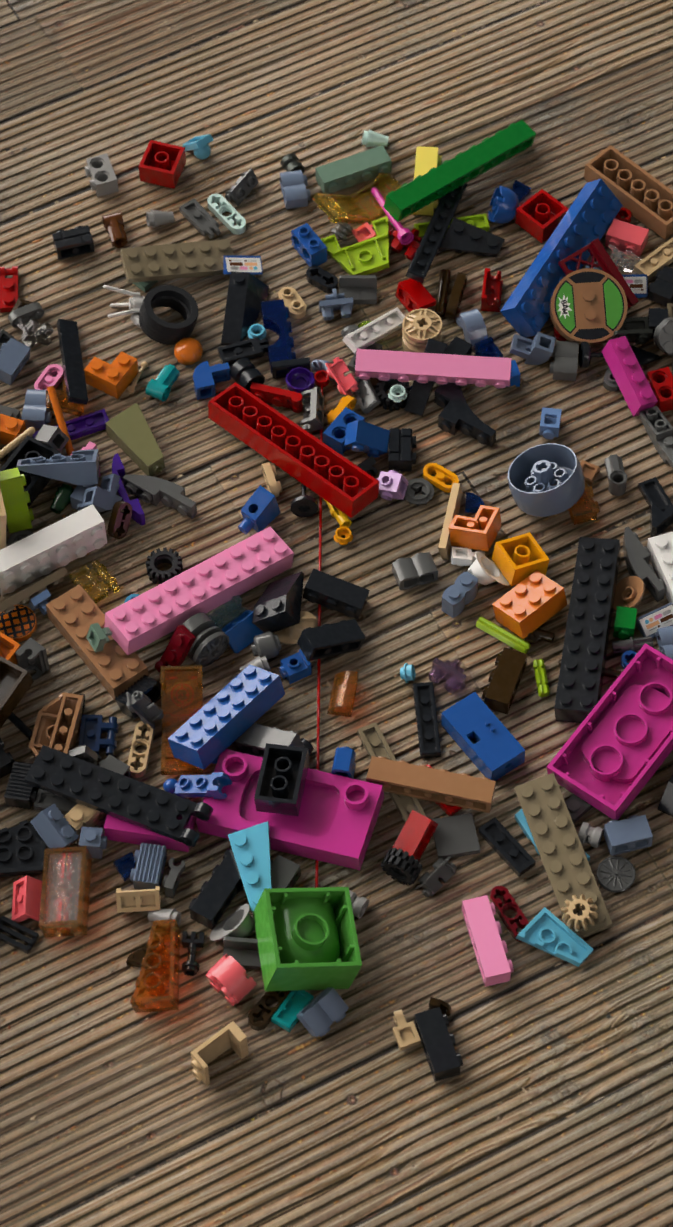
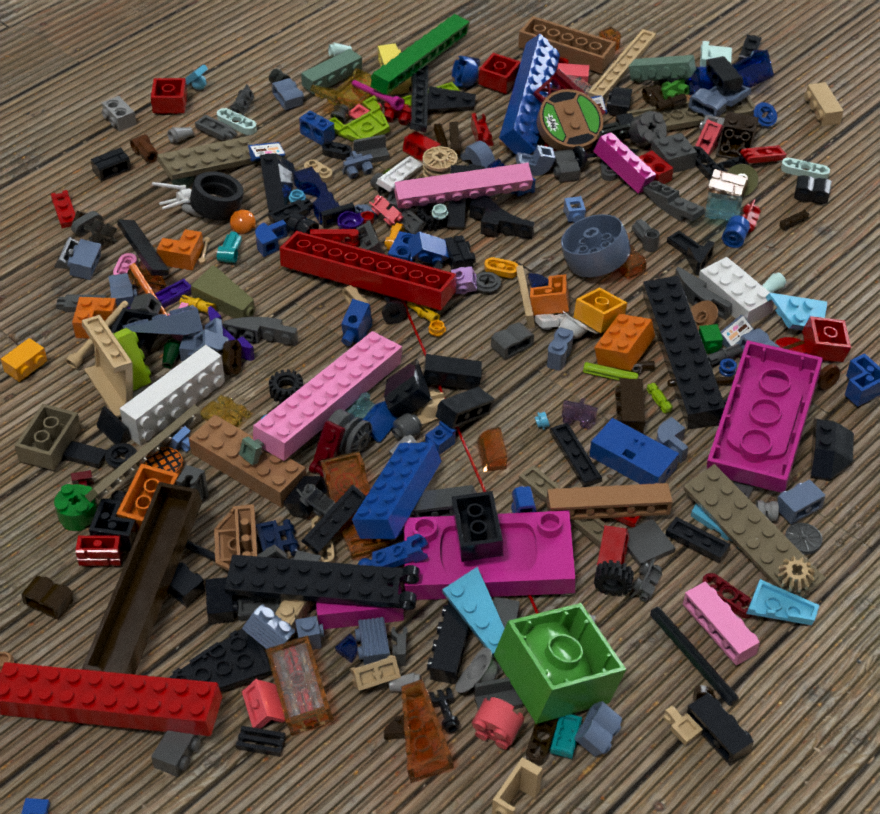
camera: 20 degrees left, 10 degrees down
(108, 444) = (198, 303): none -> yellow pin
(155, 731) = (334, 519): none -> black plate
(448, 965) = (694, 656): none -> black axle
(527, 726) = (671, 435): none -> sand blue brick

